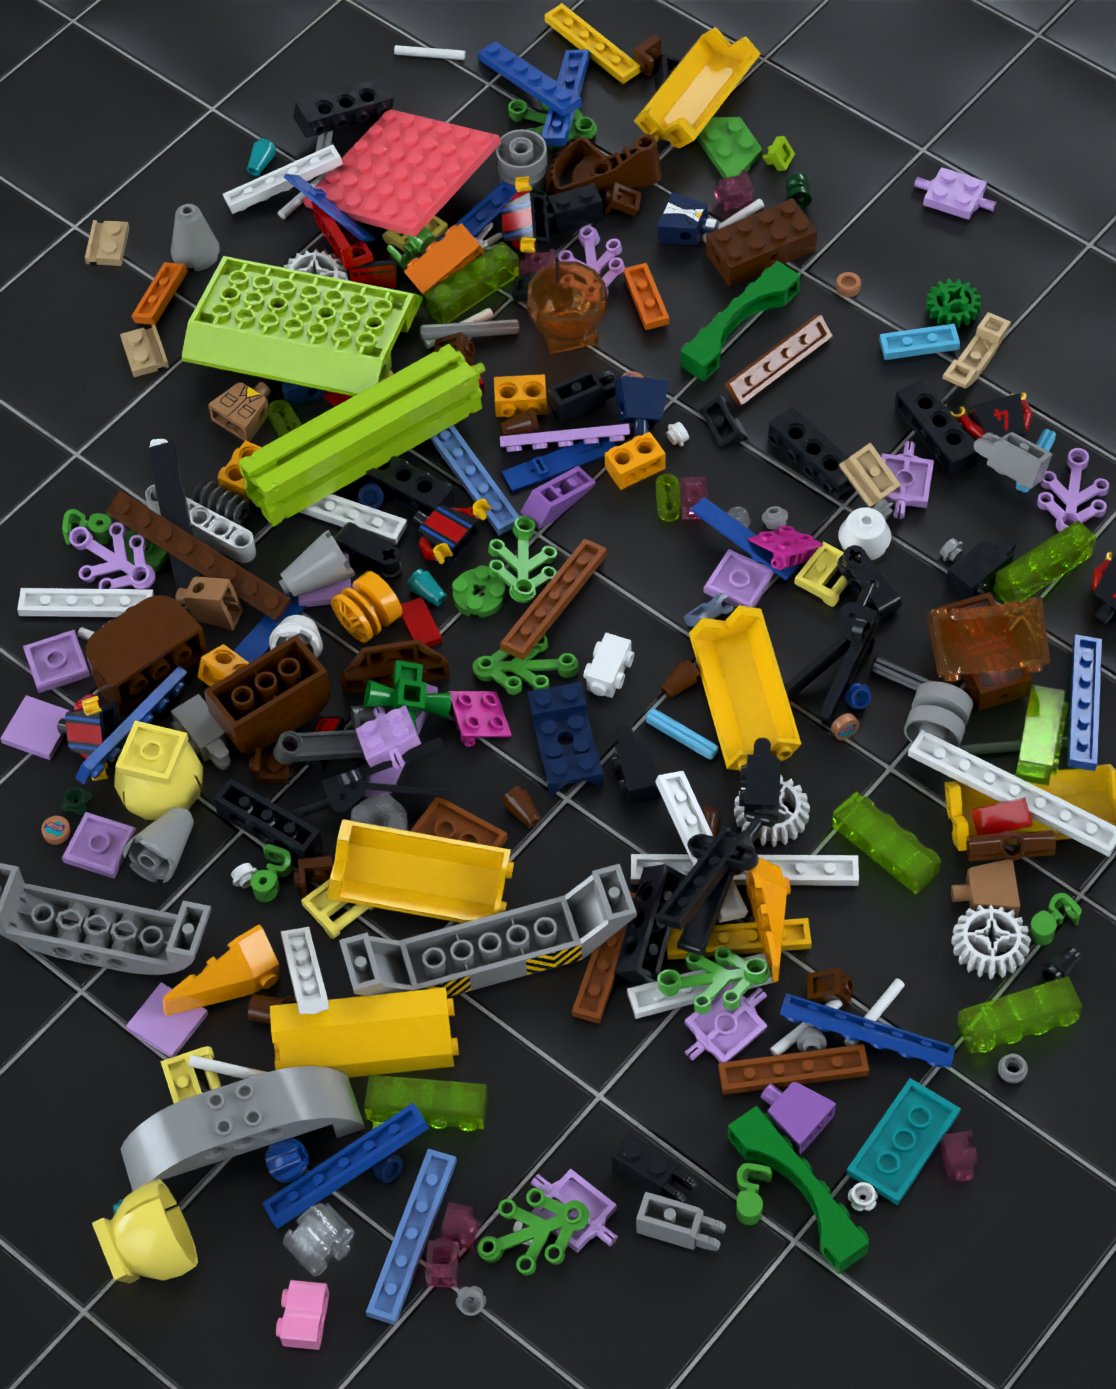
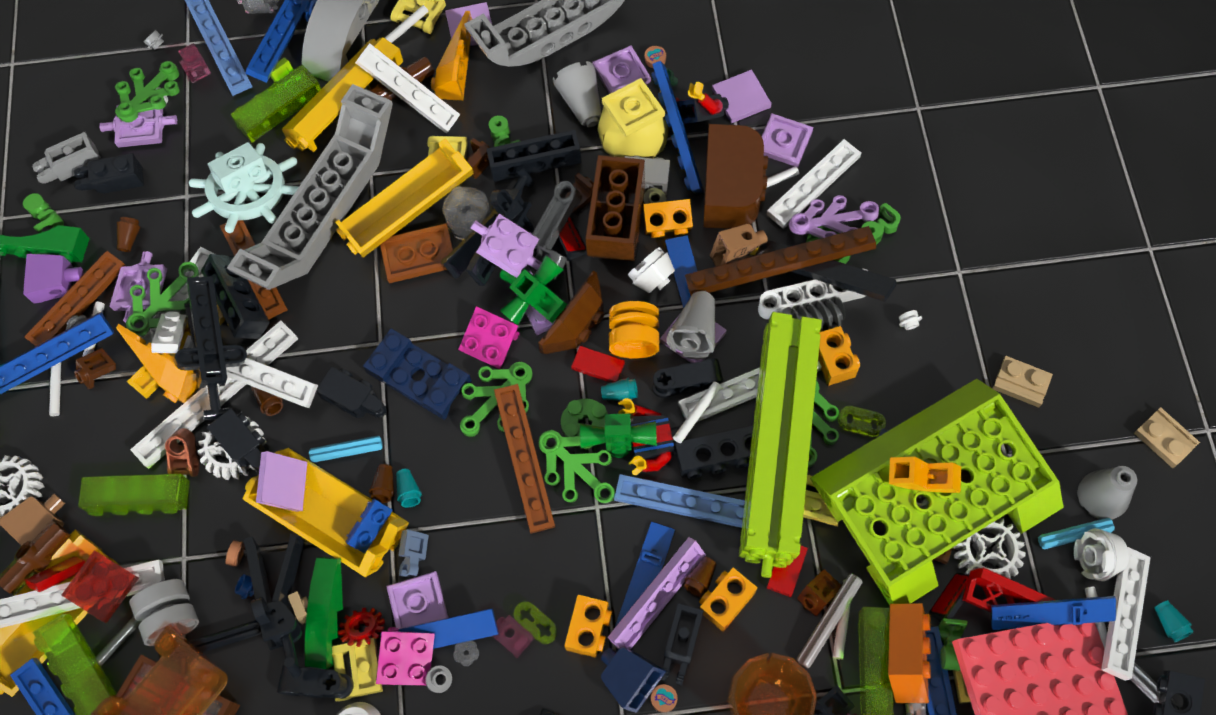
camera: 135 degrees right, 10 degrees up
(159, 293) = (1072, 430): orange plate -> none
(241, 409) = (896, 395): medium nougat torso -> none
(242, 875) = (517, 124): white plate -> none
(246, 245) = (1073, 533): none -> medium azure axle
(253, 213) = (1101, 554): none -> white cone
(305, 315) = (923, 476): none -> light orange brick
(371, 495) = (734, 418): dark blue tile -> none
(393, 513) = (697, 412): none -> white bar
(442, 1274) = (186, 40): clear pink brick -> none
(471, 535) = (618, 434): none -> green brick
(521, 806) = (399, 306): reddish brown cone -> none
(540, 1027) = (241, 177): none -> light aqua piece
(556, 496) = (609, 543): medium lavender slope -> none
(608, 665) = (433, 436): white brick -> none
(665, 658) = (407, 489): none -> teal cone
(677, 434) = (582, 683): white plate -> none
(688, 1097) = (126, 233): none -> reddish brown cone
(734, 649) = (367, 529): none -> blue hinge
(737, 913) = (169, 333): none -> white plate
(758, 724) = (281, 481): none -> lavender tile
(793, 584) = (353, 622): none -> red gear
(811, 622) = (322, 609): none -> green slope
(818, 835) = (182, 458): none -> copper piece
(827, 640) = (299, 606): none -> tan plate
(971, 758) = (100, 586): none -> clear red plate

